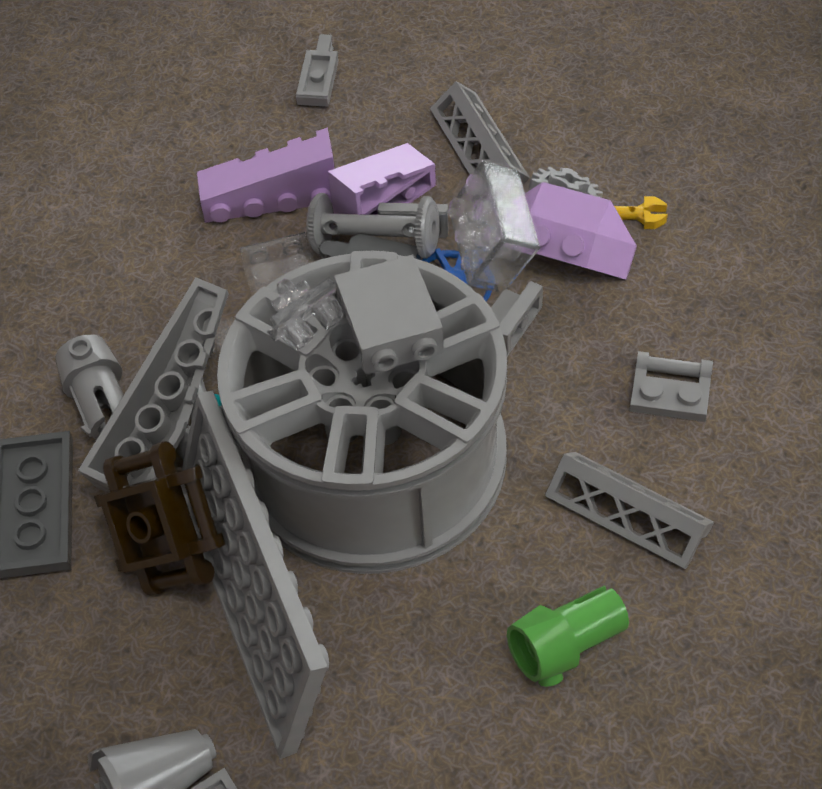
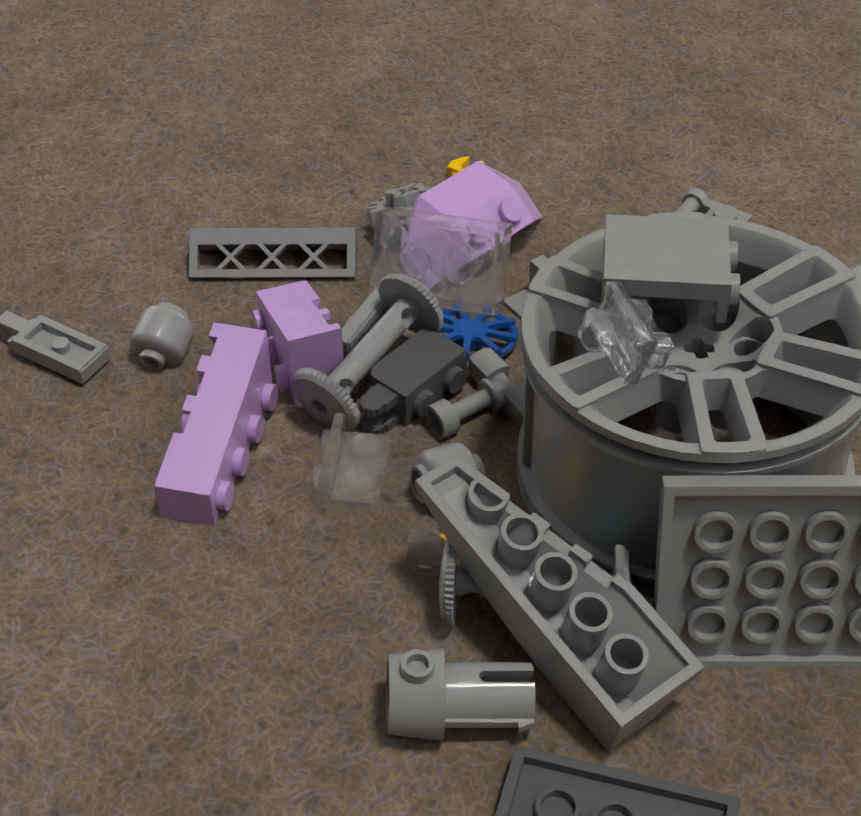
camera: 70 degrees left, 10 degrees down
(153, 520) = (756, 644): dark brown brick -> none
(351, 119) = (161, 335): none -> light grey head

